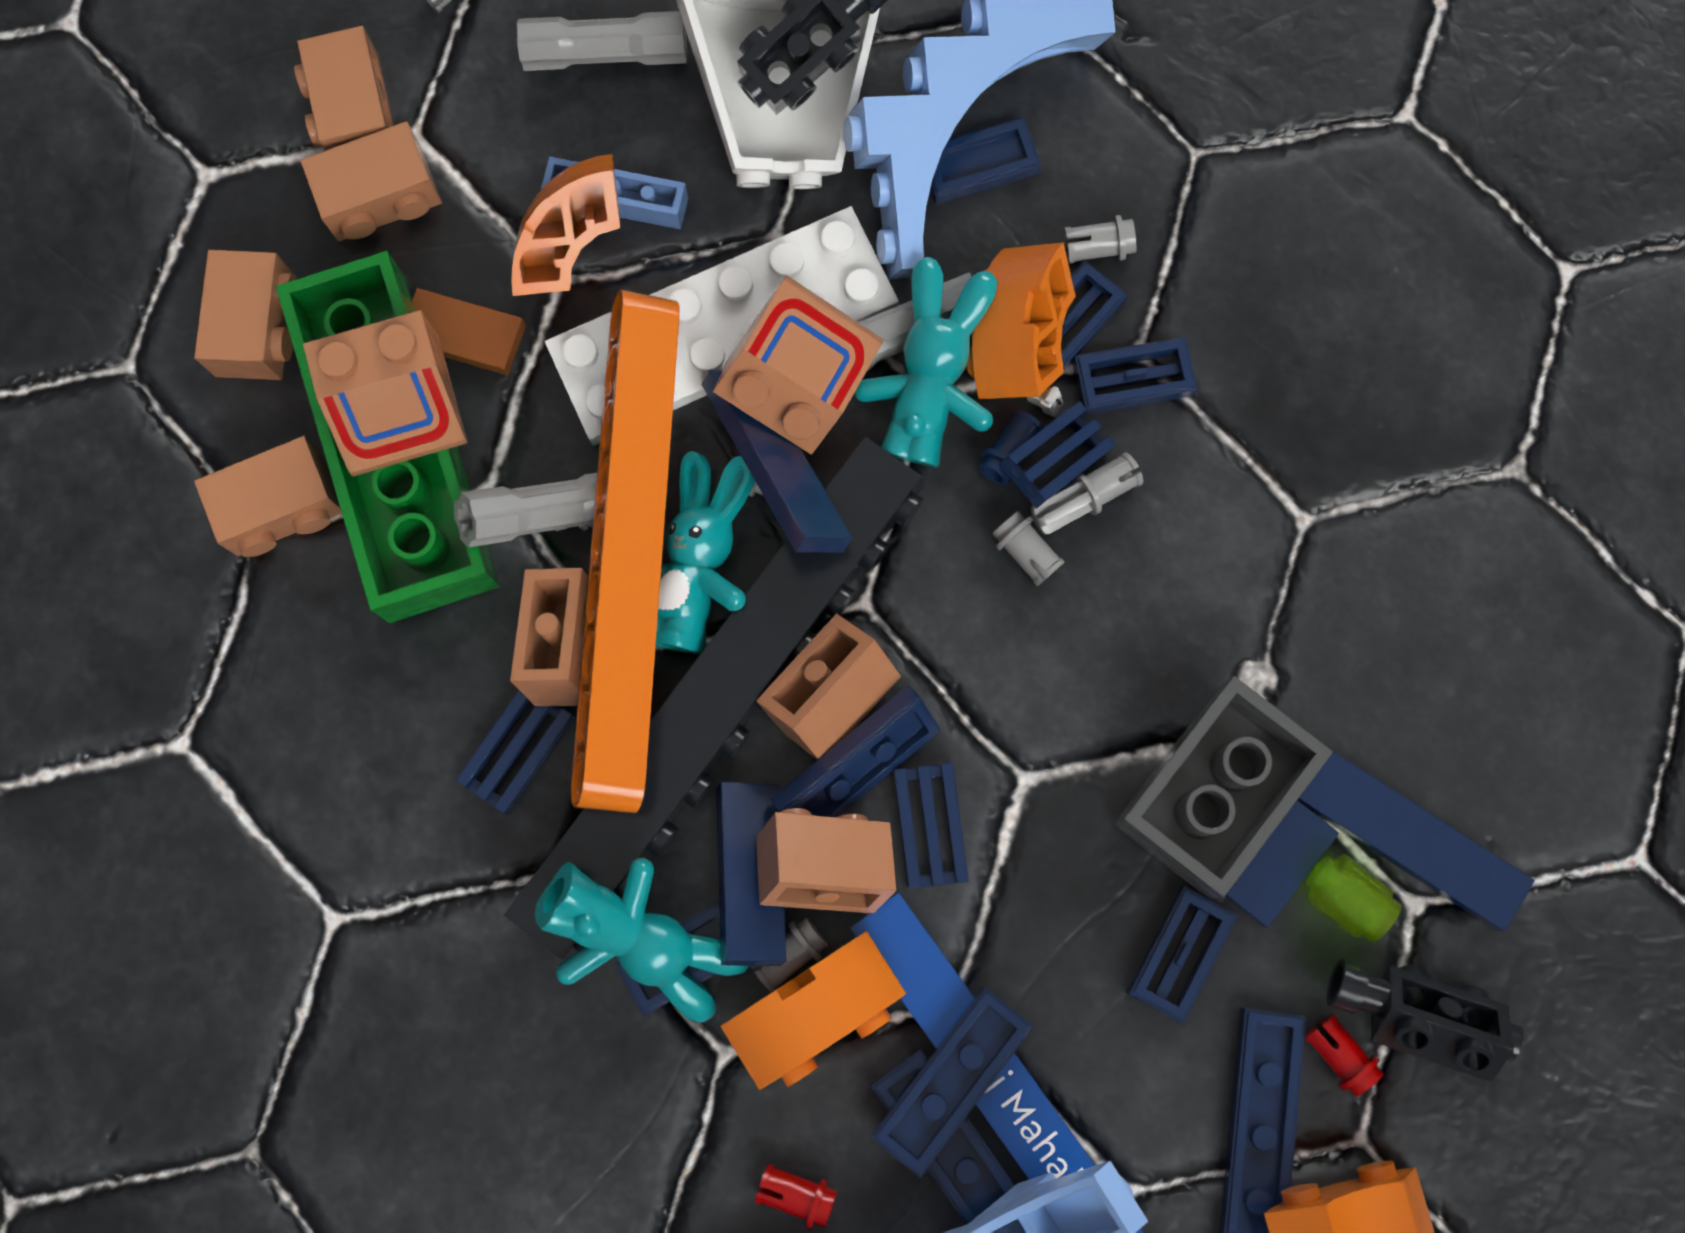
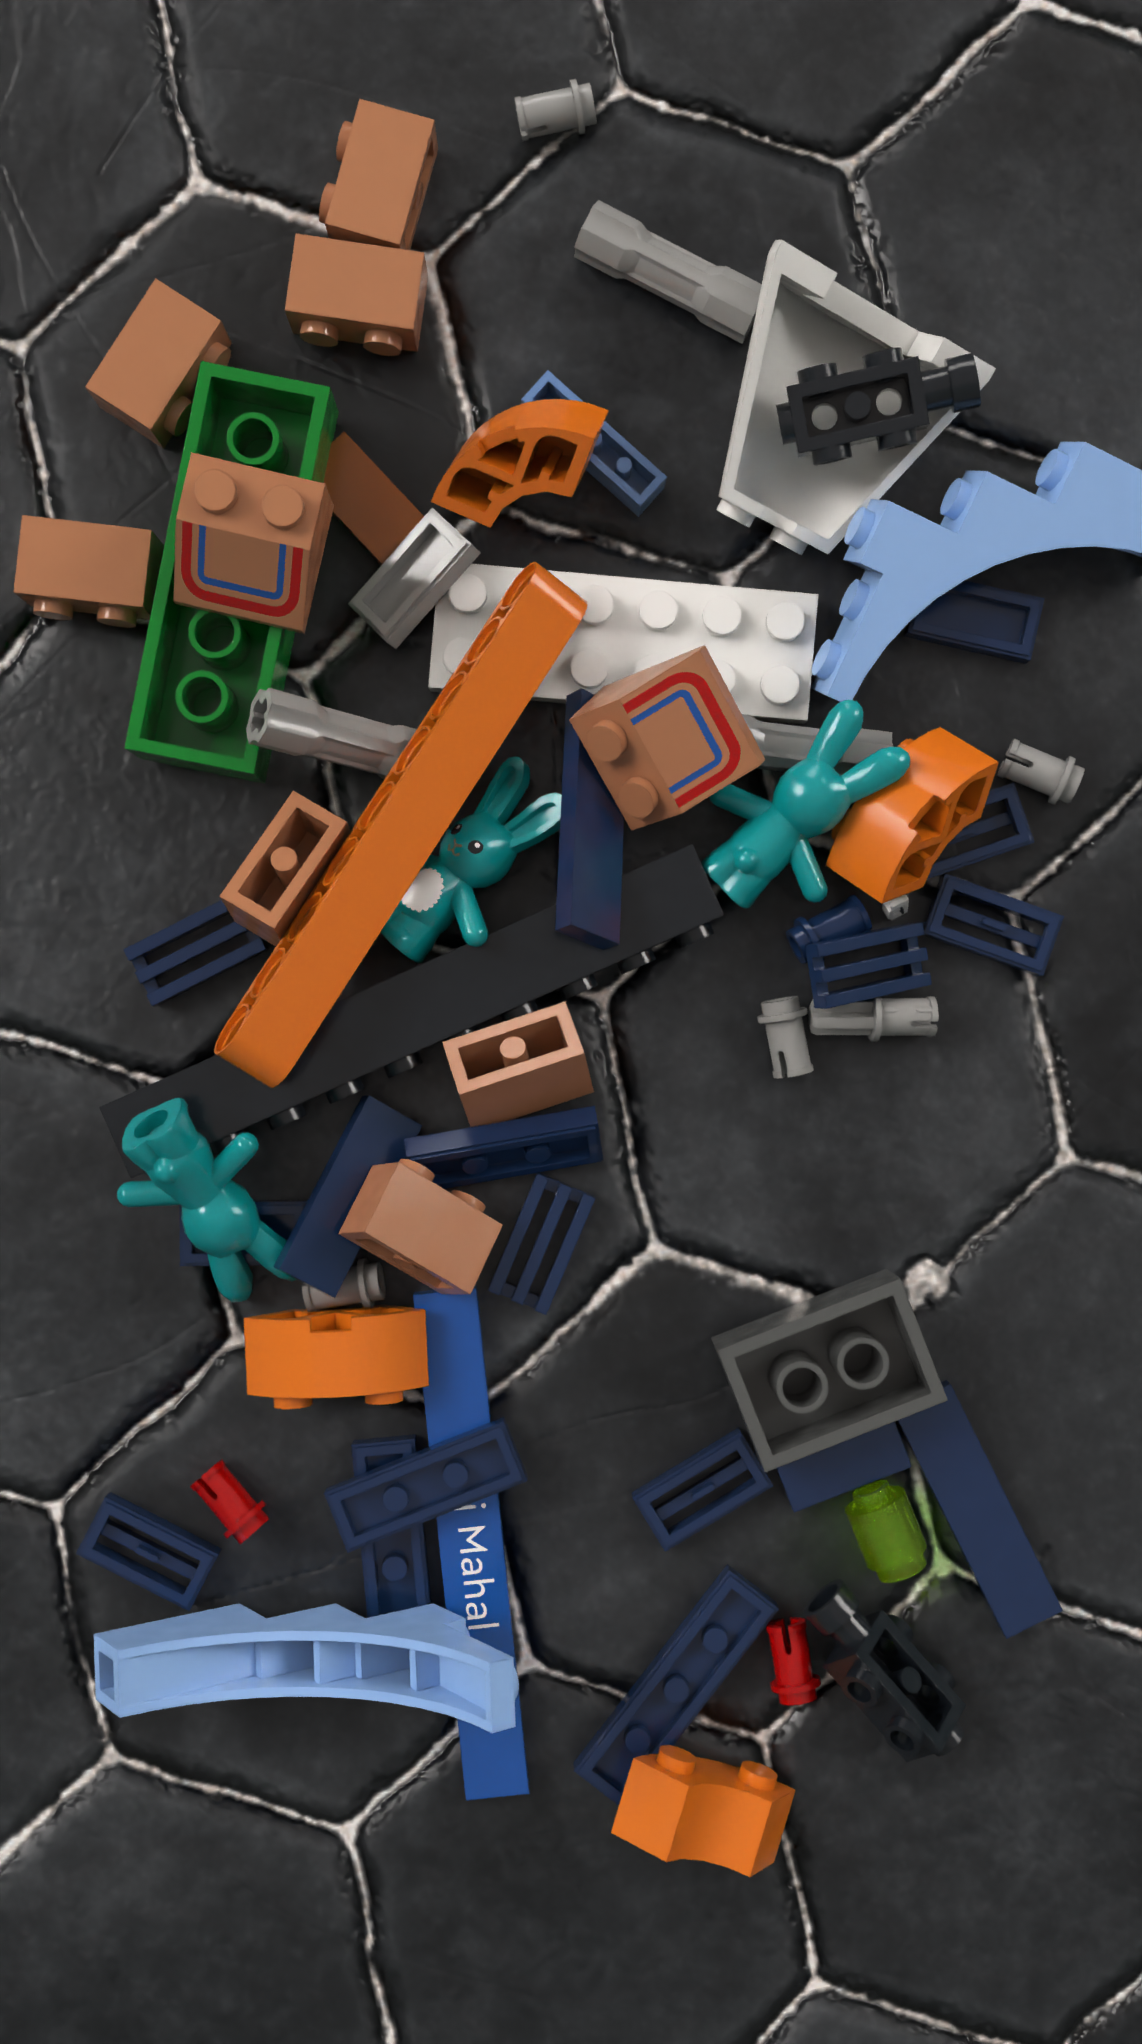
camera: 30 degrees right, 10 degrees up
(532, 363) = (414, 578): none -> light grey tile

